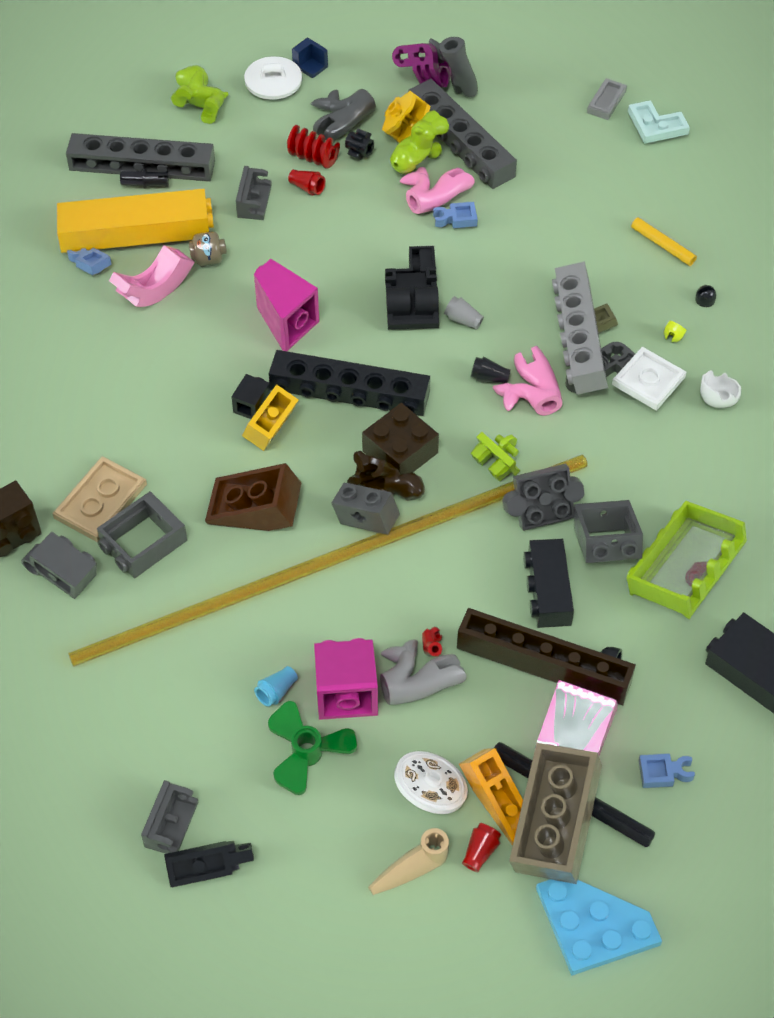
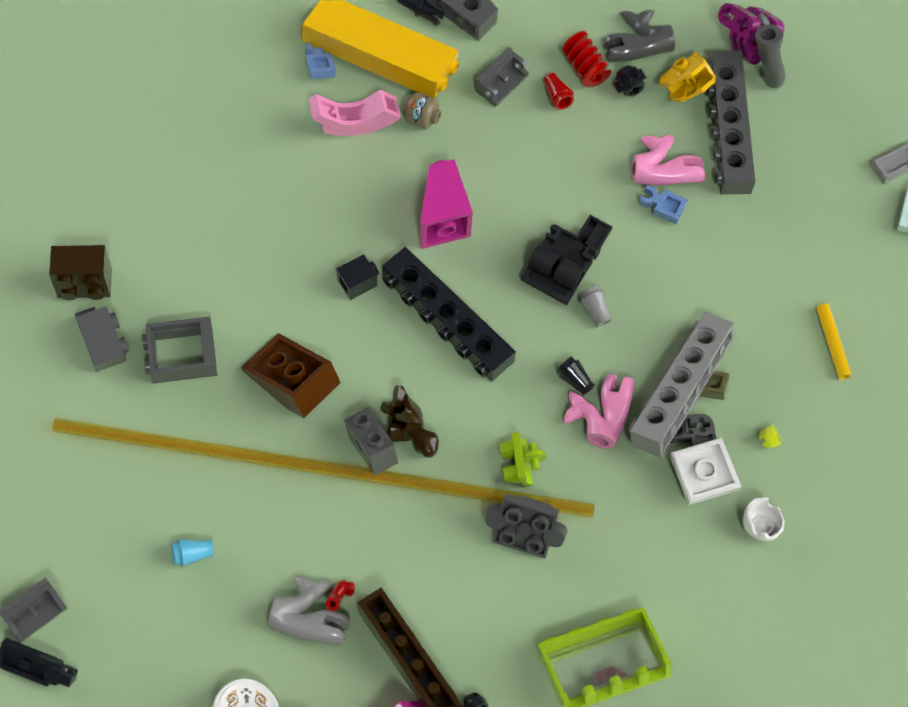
camera: 30 degrees right, 10 degrees up
(99, 497) = (175, 293): tan tile -> none
(270, 417) = (355, 307): yellow brick -> none
(293, 771) = (150, 634): green piece -> none
(346, 679) = (246, 580): dark pink slope -> none
(401, 440) = (447, 397): dark brown brick -> none
(420, 143) = (678, 114): lime animal -> none
(549, 583) = (473, 604): black brick -> none
(618, 516) = (552, 567): dark grey window -> none
(705, 296) = (828, 423): black hinge -> none

